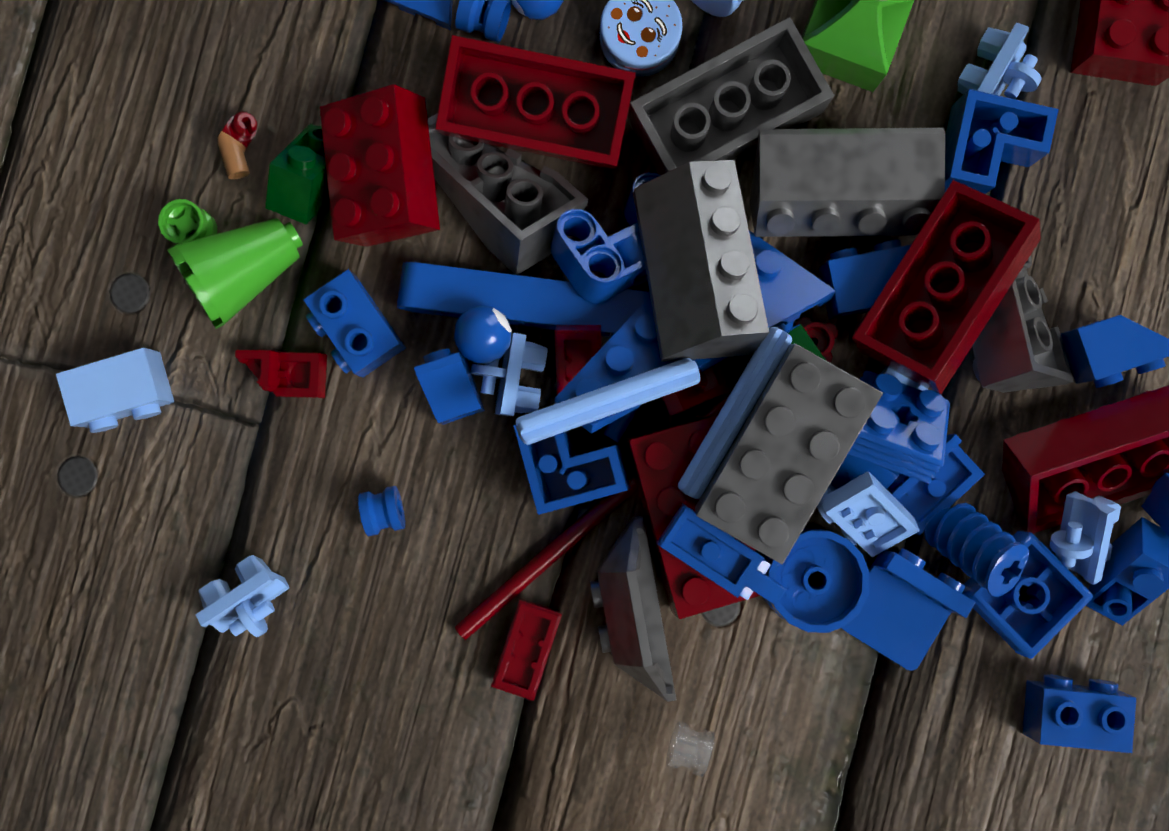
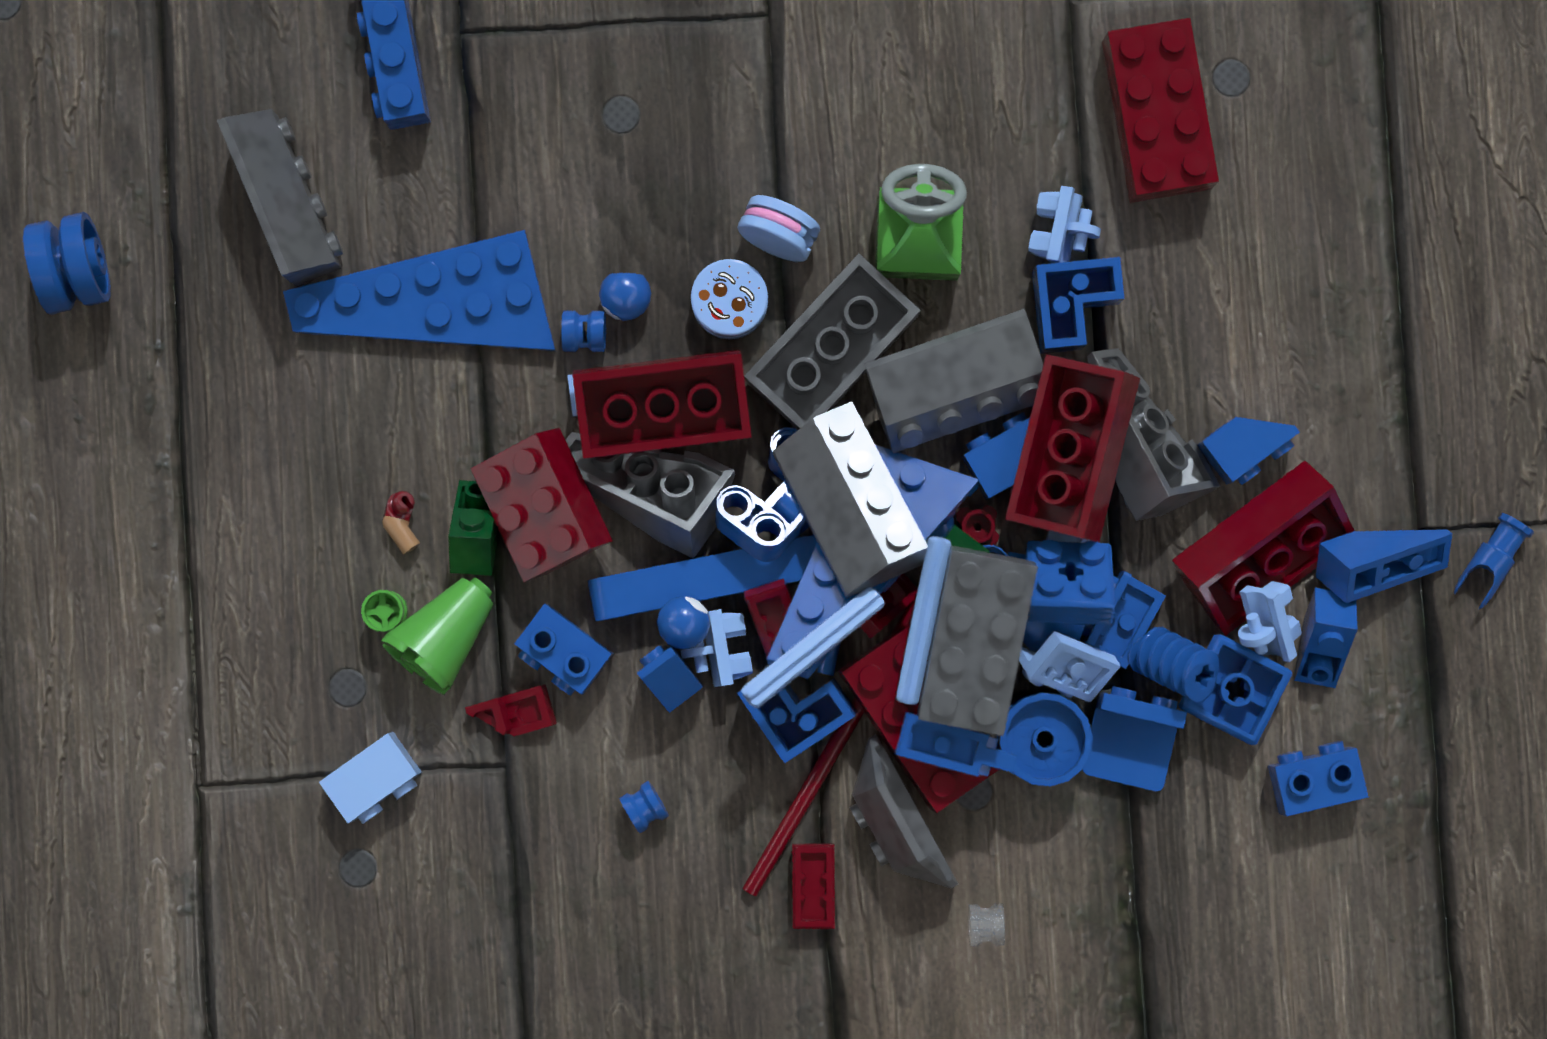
camera: 15 degrees left, 0 degrees up
(244, 605) = (553, 928): light blue hips -> none

